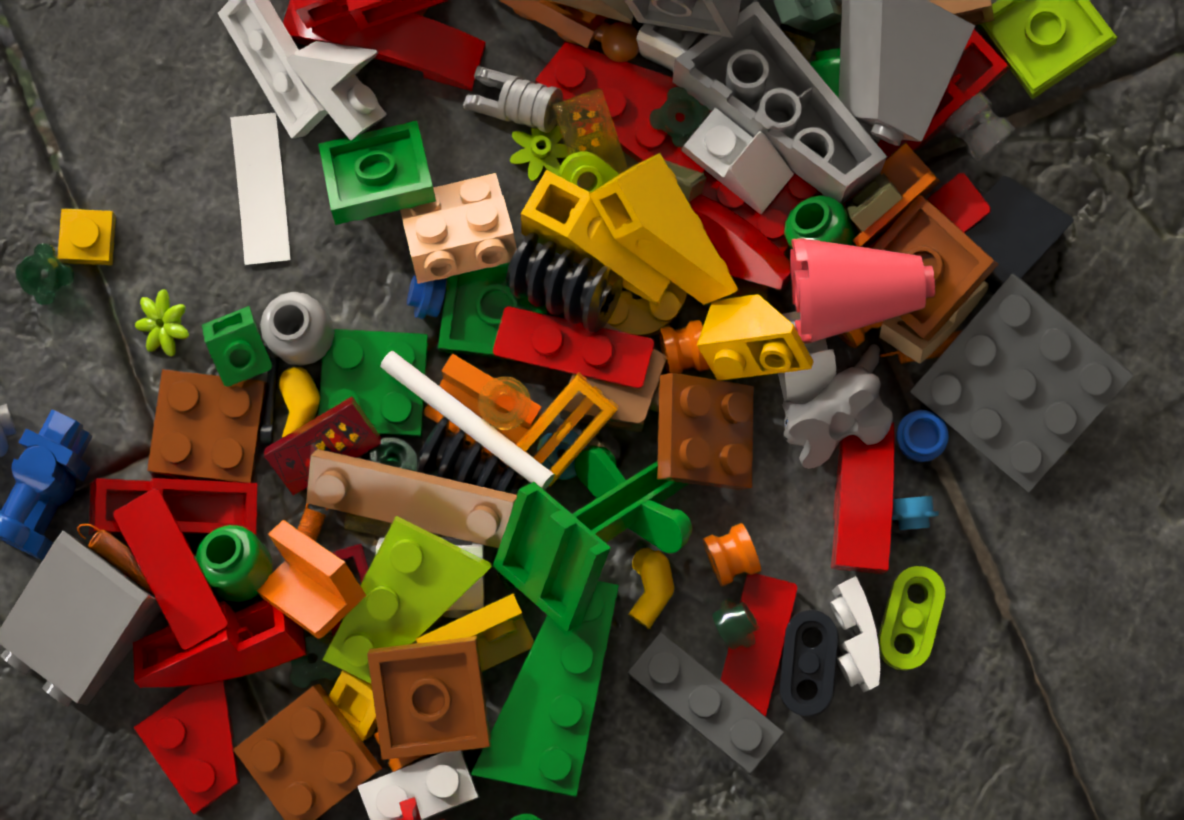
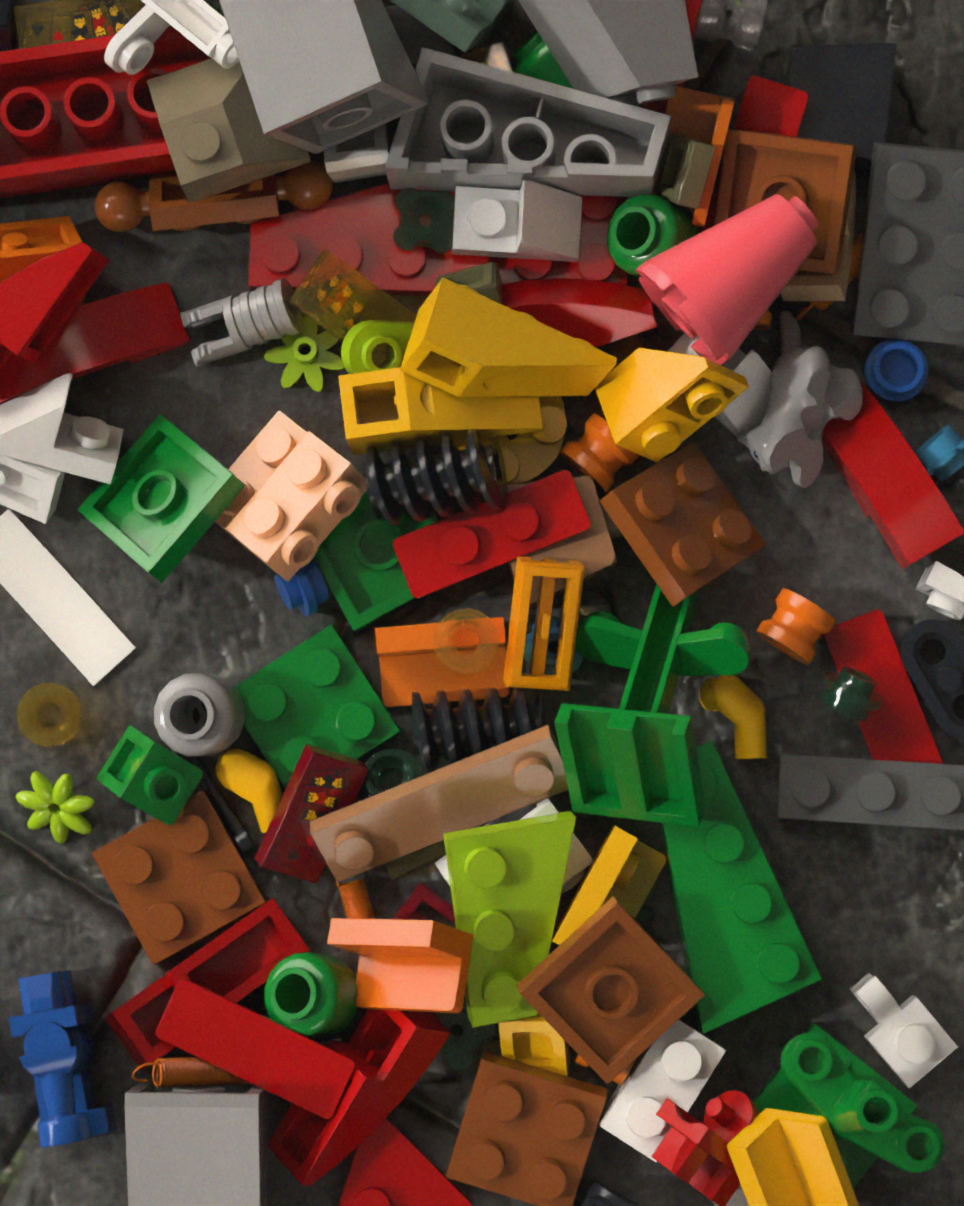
camera: 30 degrees left, 5 degrees up
(198, 247) = (29, 714): none -> clear yellow plate
(467, 420) = (440, 685): white bar -> none

